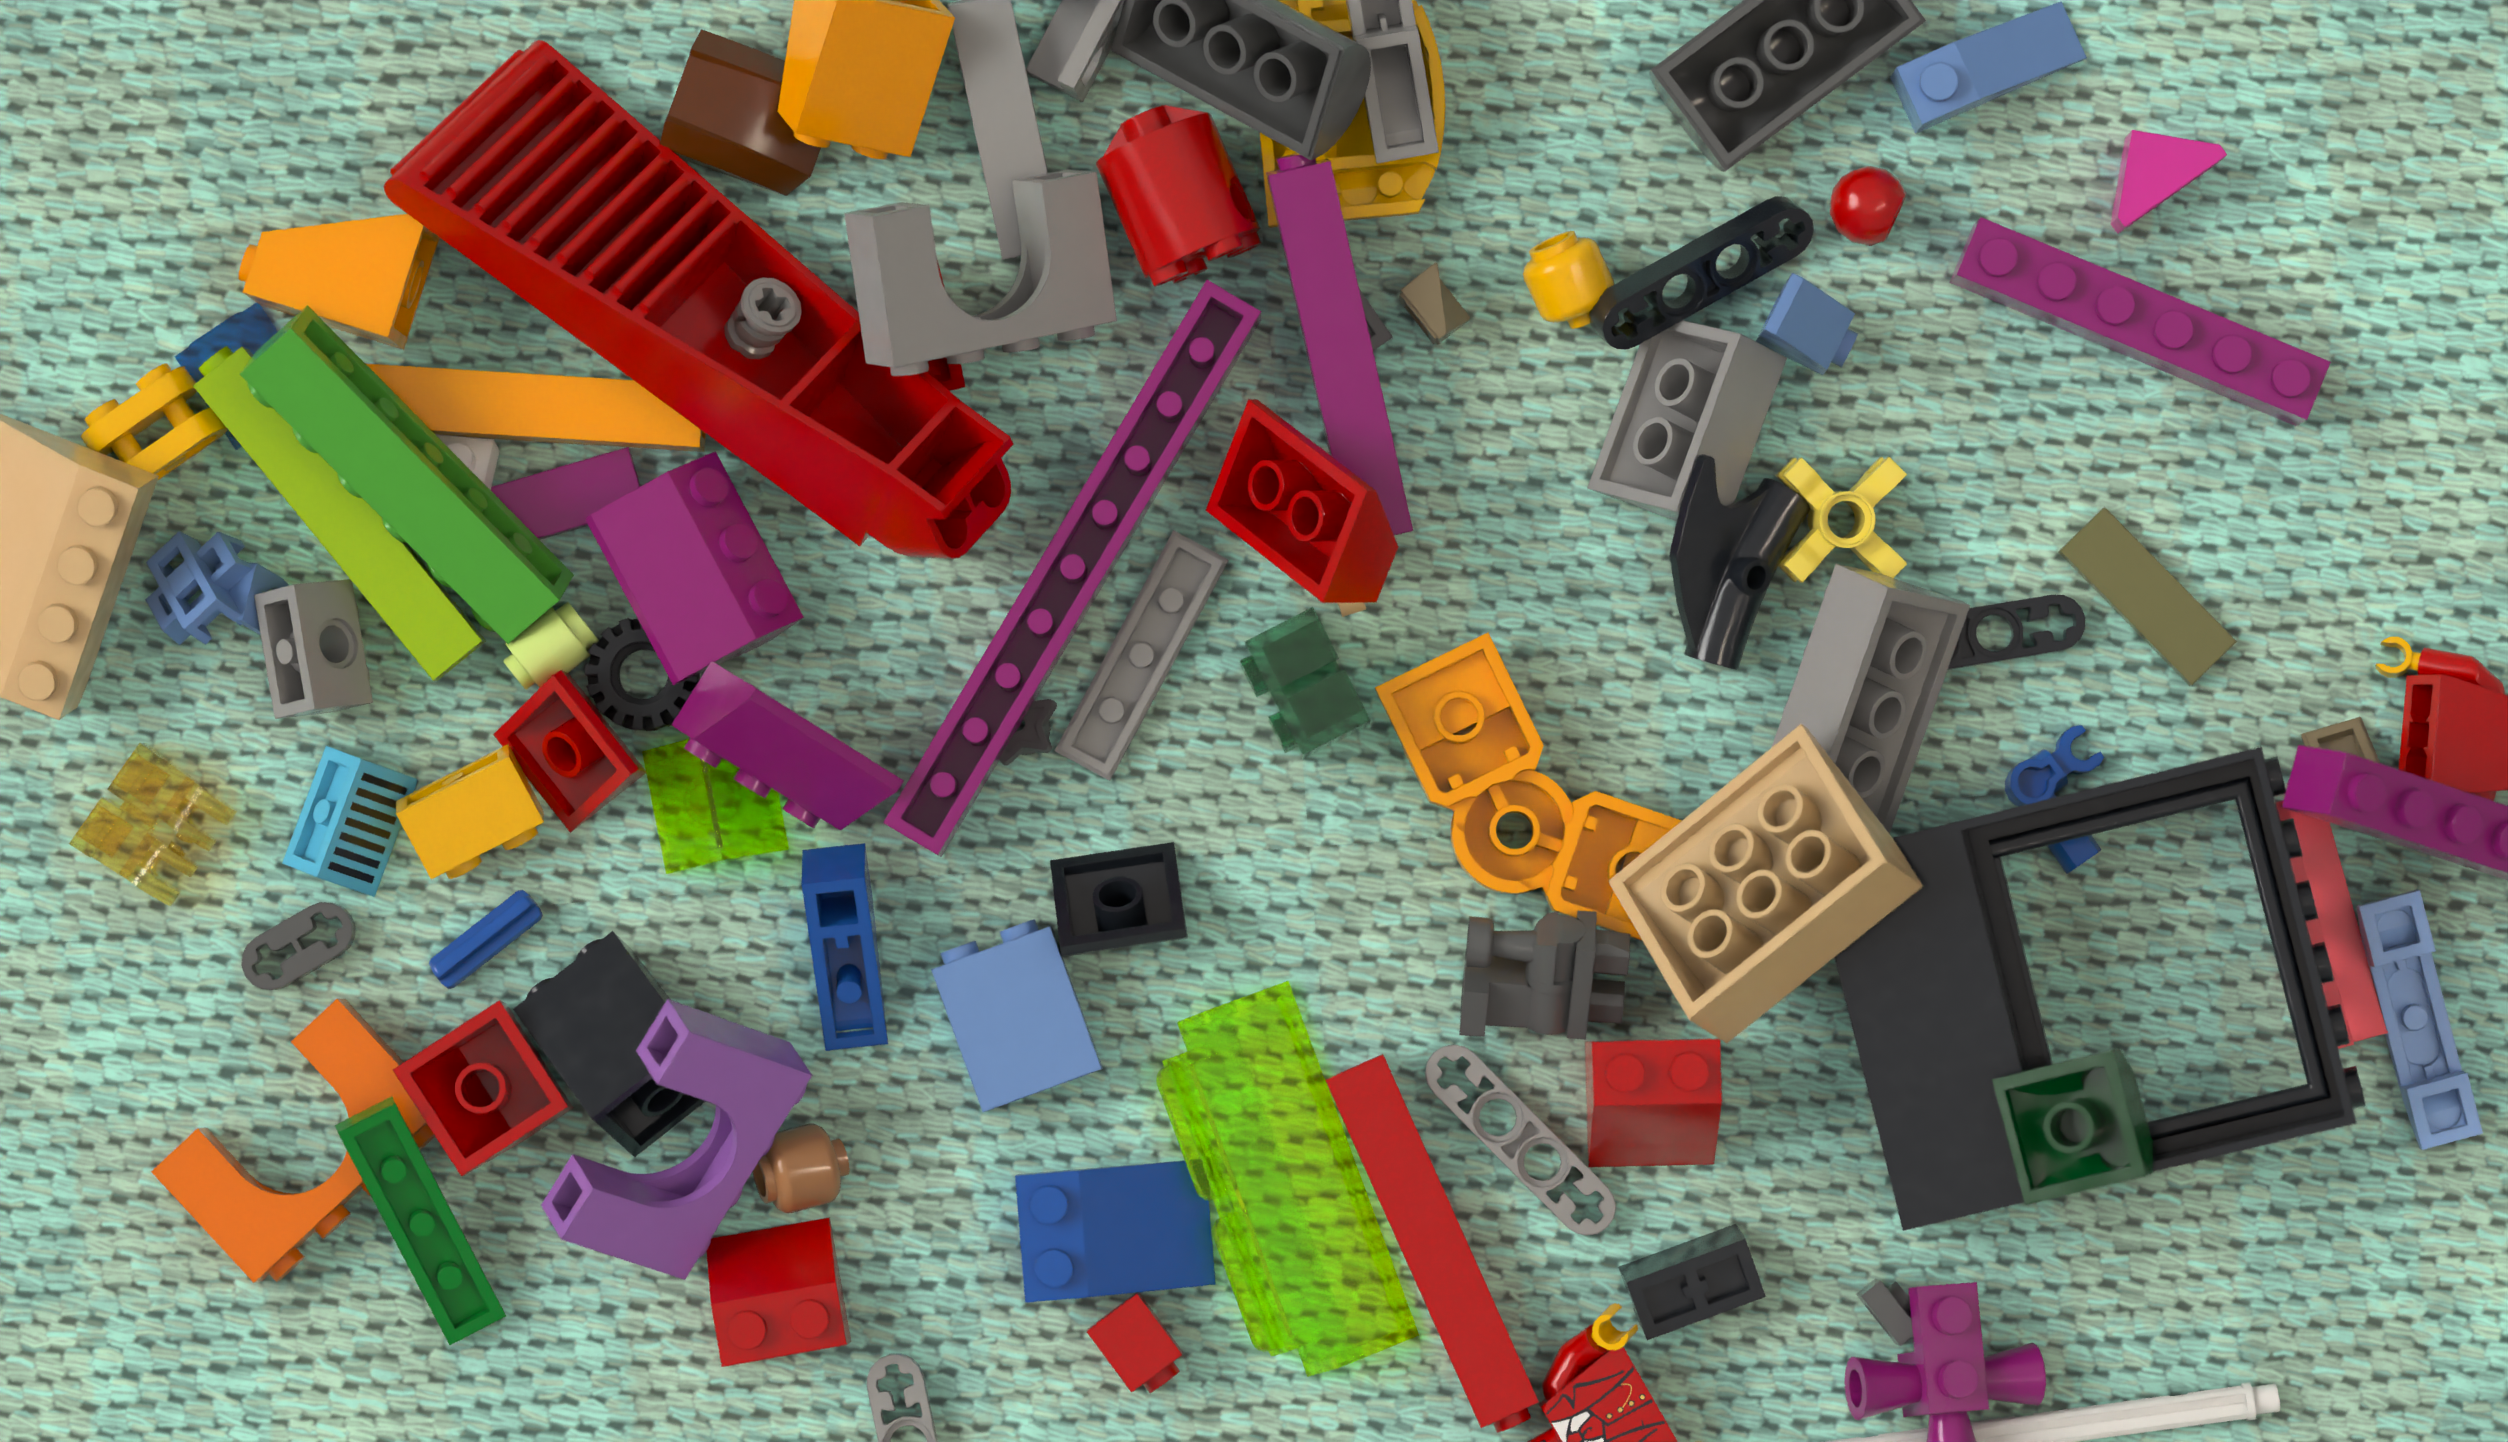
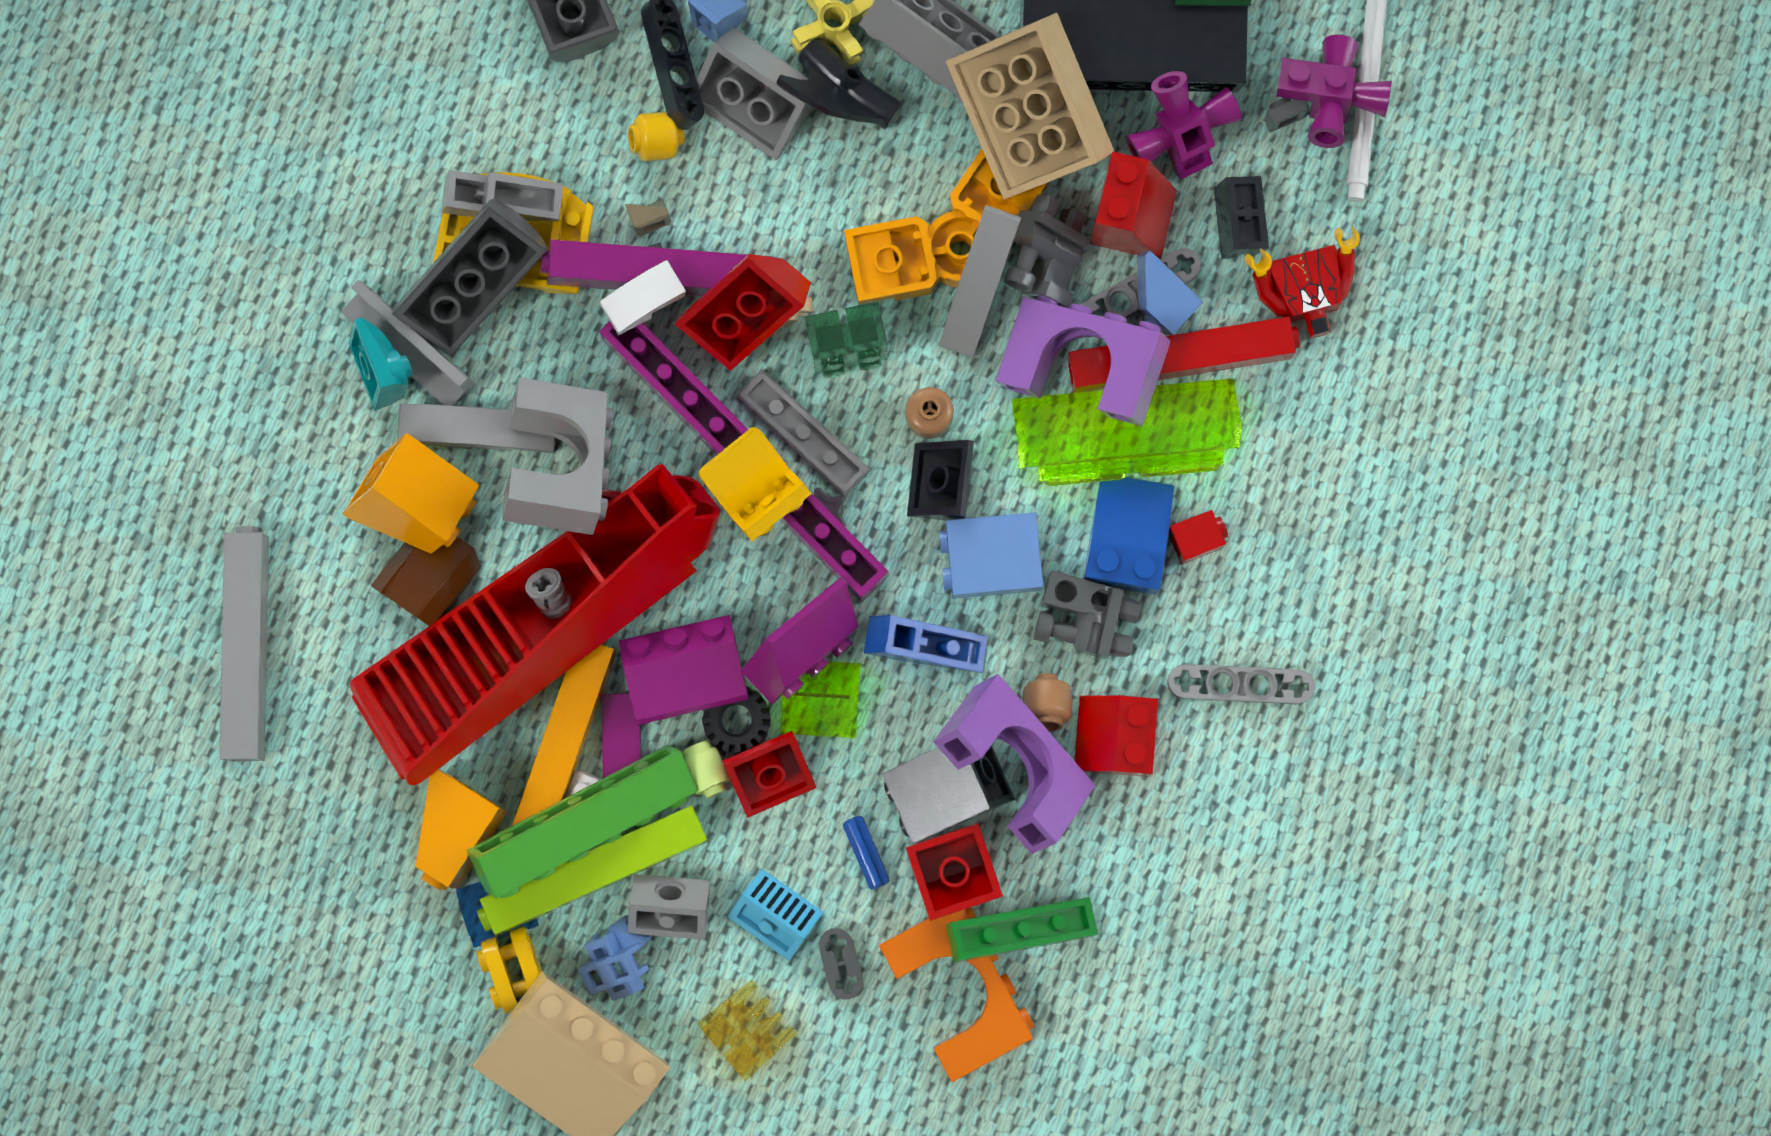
camera: 80 degrees left, 5 degrees down
(470, 814) = (790, 839): yellow brick -> none
(961, 1211) = (1096, 617): none -> dark grey hips
(1011, 601) = (753, 483): none -> yellow bracket
(1177, 193) = (542, 338): red cylinder -> none
(1217, 875) = (929, 425): none -> medium nougat head
(1278, 335) = (642, 296): none -> white slope
(1398, 1161) = (1046, 328): none -> medium lavender arch
(1456, 877) = (979, 281): none -> light grey slope
(1515, 1186) = (1163, 295): none -> medium blue slope
(1810, 1143) = (1183, 126): none -> magenta brick

